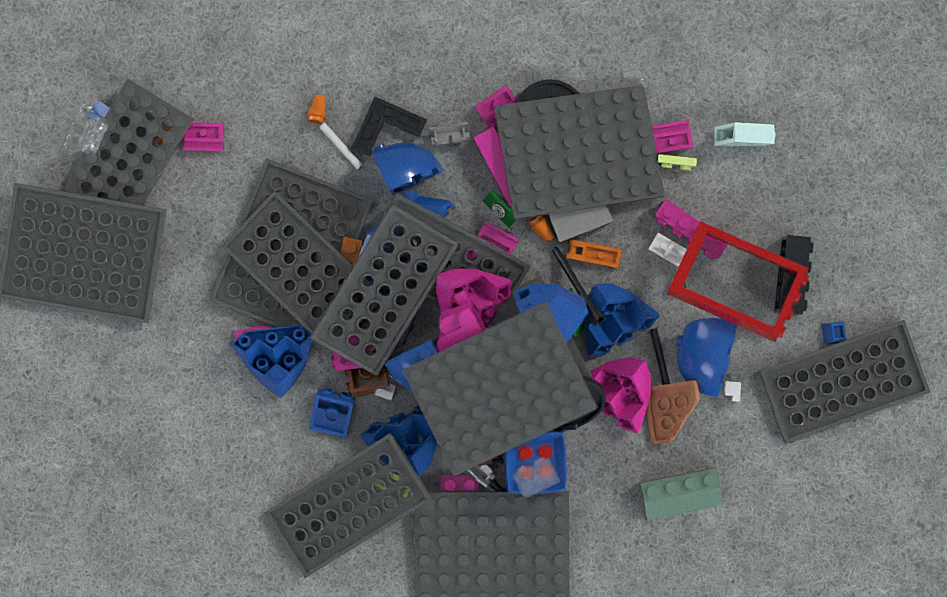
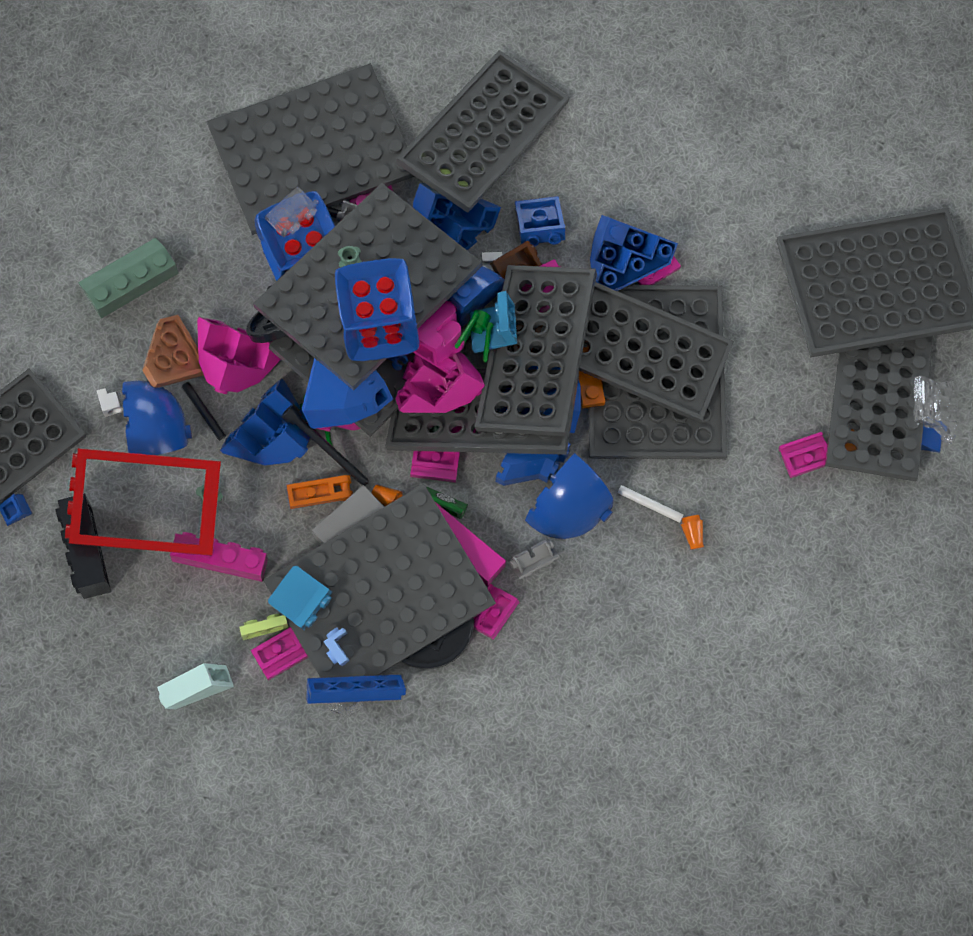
camera: 160 degrees right, 15 degrees down
(385, 112) = (621, 555): black plate -> none
(410, 322) = (504, 327): none -> dark azure bracket
(421, 328) = (479, 322): none -> green plant
(501, 417) = (349, 251): none -> sand green plate
(506, 348) = (376, 309): none -> blue piece
(626, 82) = (354, 689): none -> blue fence
(630, 114) = (335, 652): none -> light blue bracket
(642, 165) = (300, 597): none -> dark azure bracket
(667, 249) = (237, 524): white hips -> none

